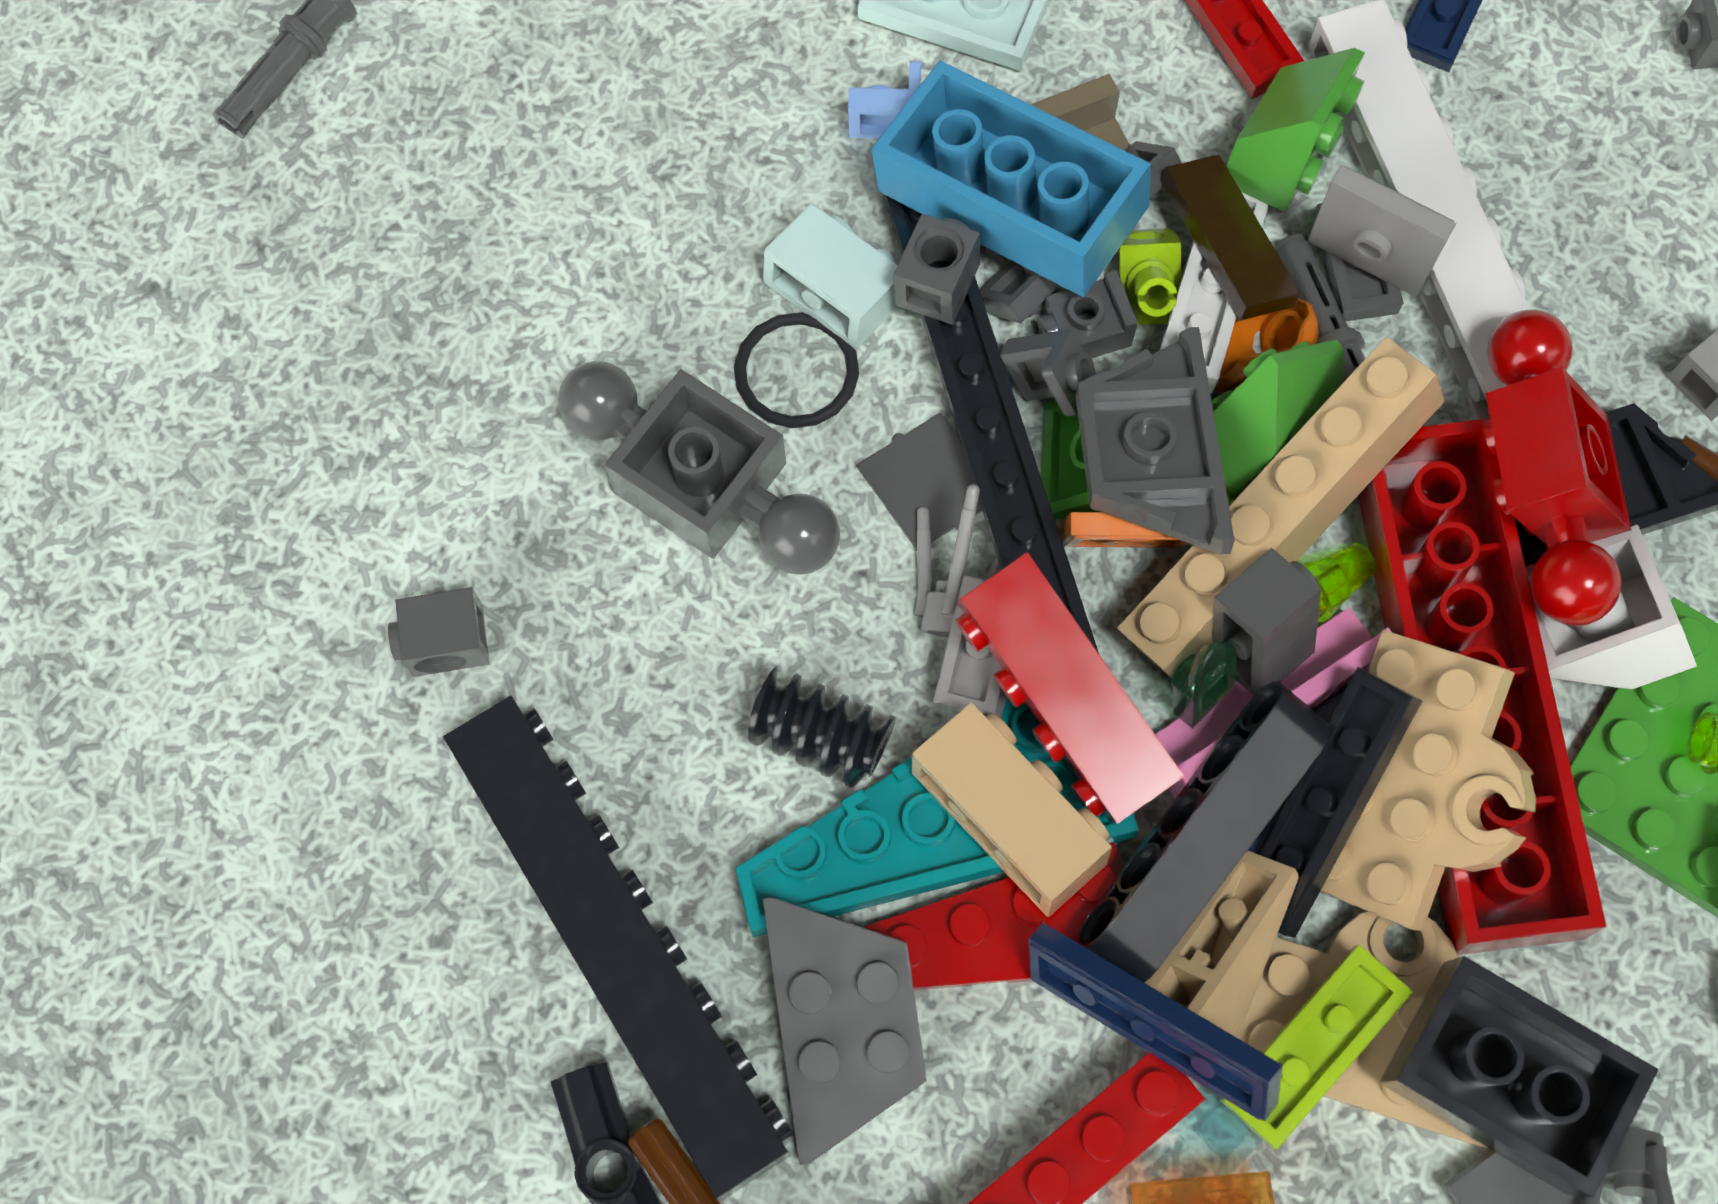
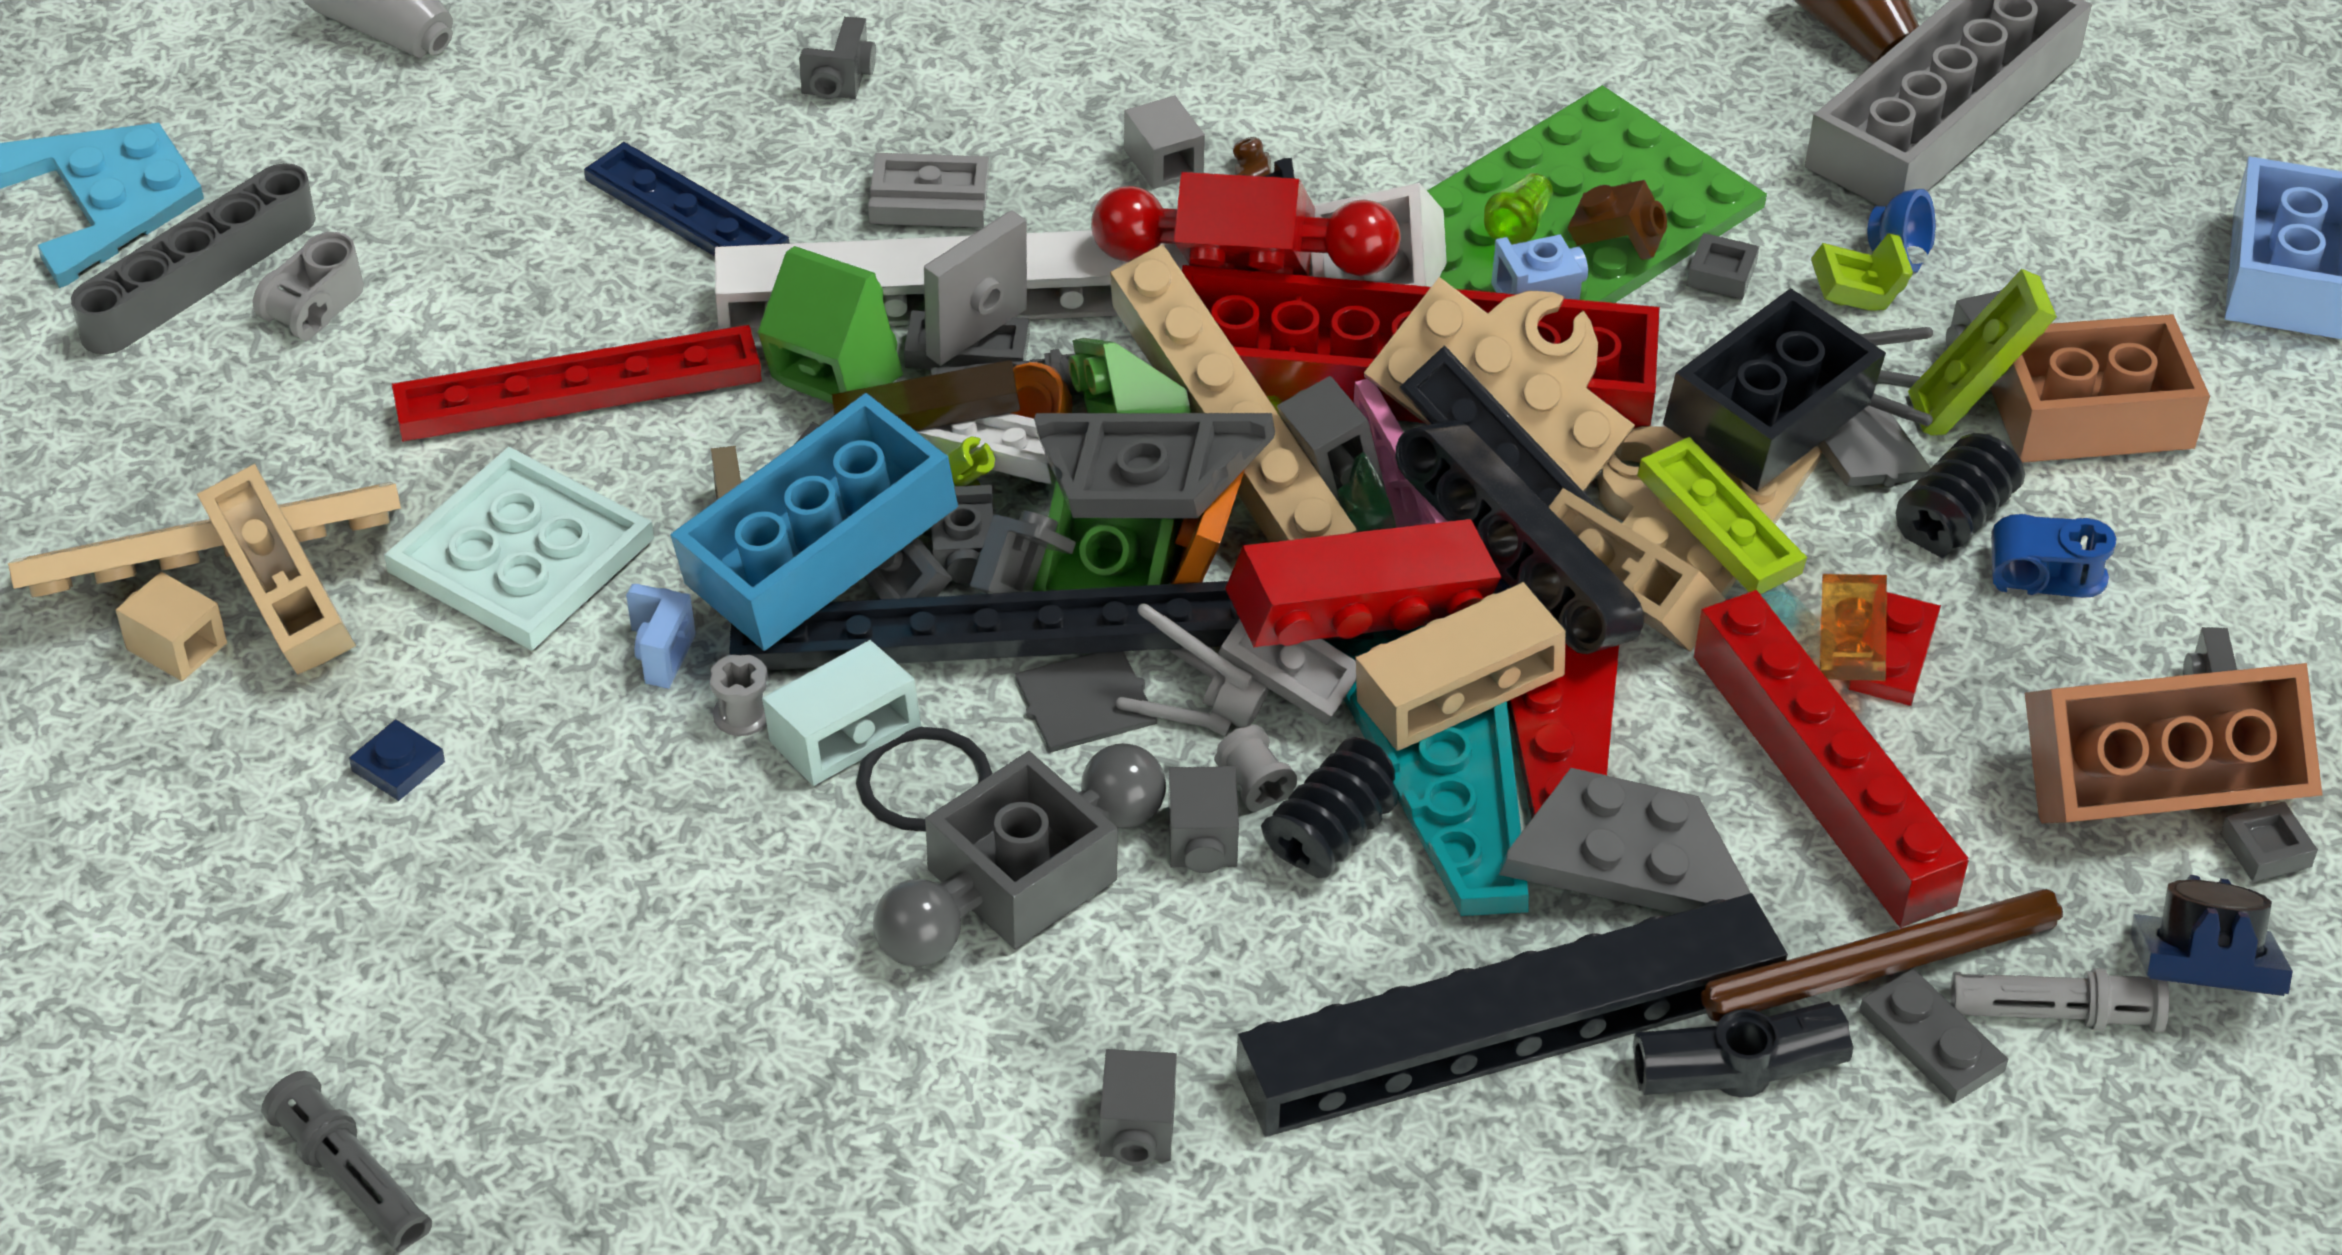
camera: 80 degrees left, 25 degrees down
(784, 614) = (1203, 818): none -> dark grey brick
(834, 185) = (739, 689): none -> light grey bush
(865, 648) = (1257, 770): none -> light grey bush
(937, 290) = (884, 605): dark grey brick -> none
(1155, 1022) = (1684, 594): dark blue tile -> none
(1568, 167) = (929, 190): none -> light grey plate
(1612, 789) = (1539, 266): none -> light blue brick

